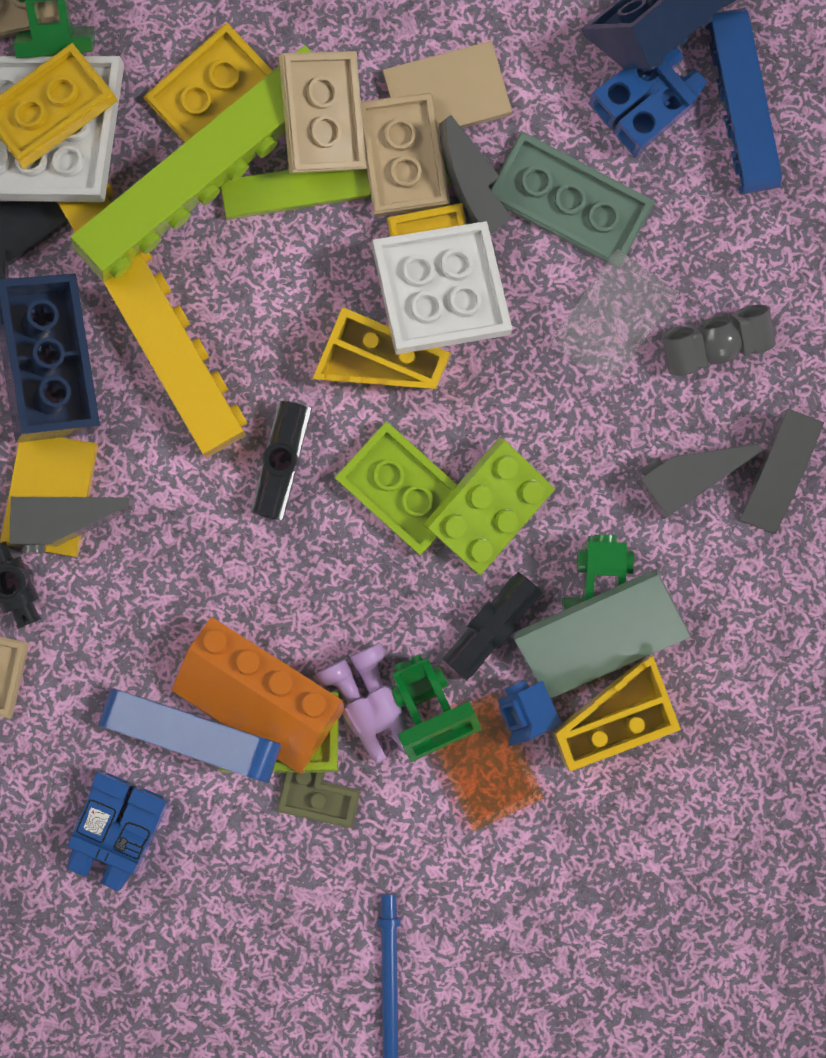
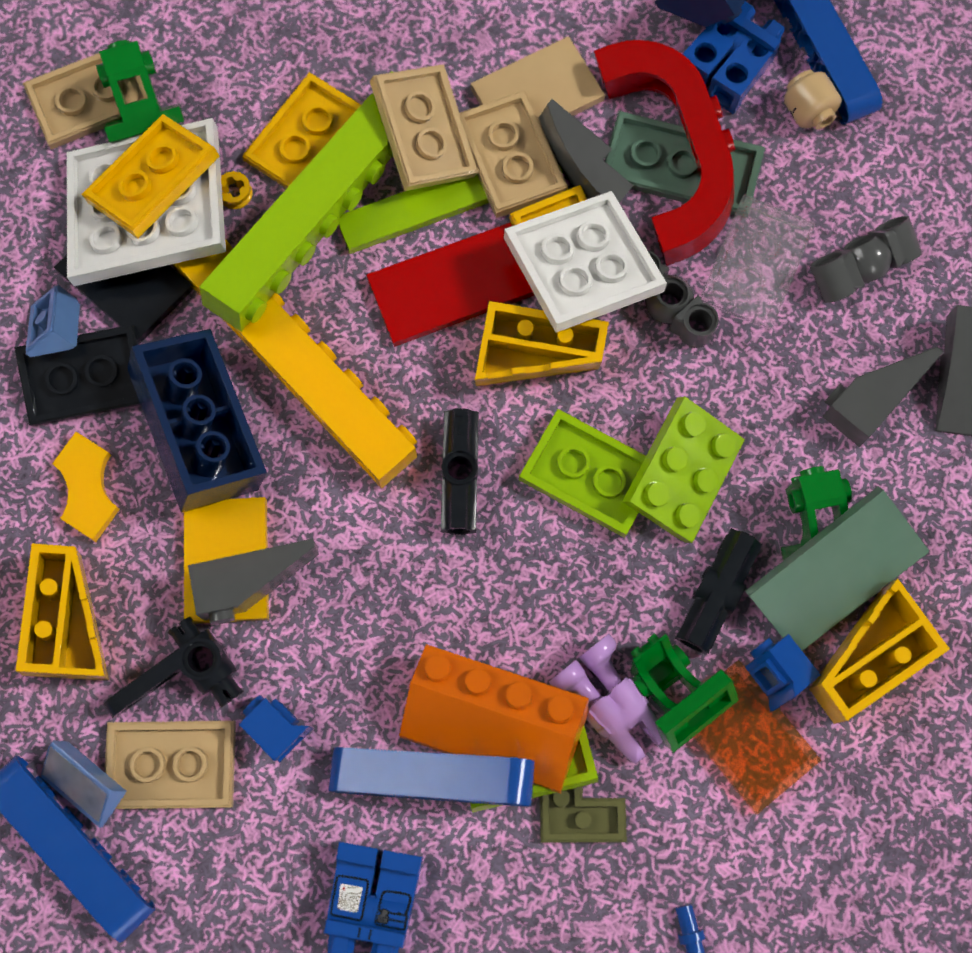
camera: 10 degrees left, 10 degrees down
(60, 657) = (273, 727): none -> blue window
(138, 136) = (245, 190): none -> yellow bush
(310, 274) = (447, 285): none -> red tile
(533, 351) = (684, 311): none -> dark grey piece
(557, 92) = (662, 69): none -> red arch
(713, 164) = (812, 99): none -> tan head

